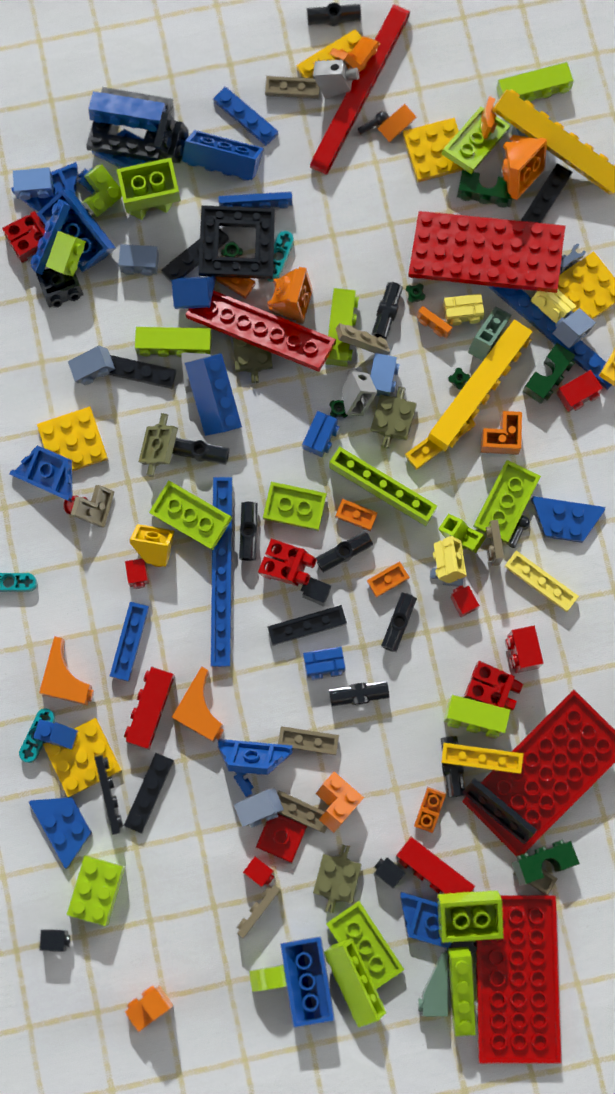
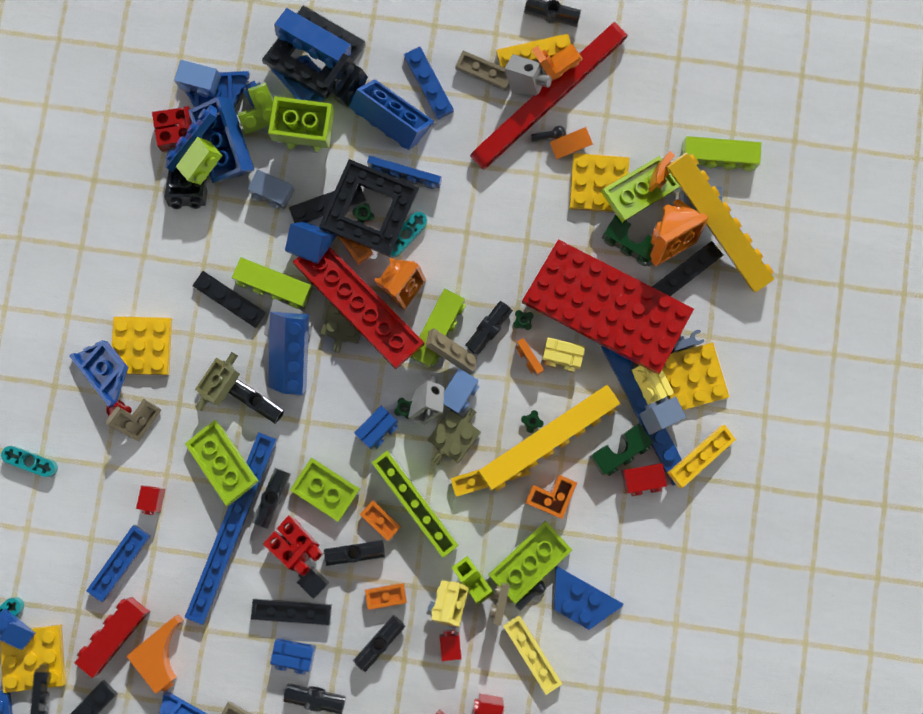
camera: 20 degrees right, 5 degrees up
(59, 681) = (39, 576): orange arch -> none
(91, 365) = (184, 279): sand blue brick -> none
(152, 544) = (175, 476): yellow slope -> none
(489, 333) = (578, 387): sand green slope -> none

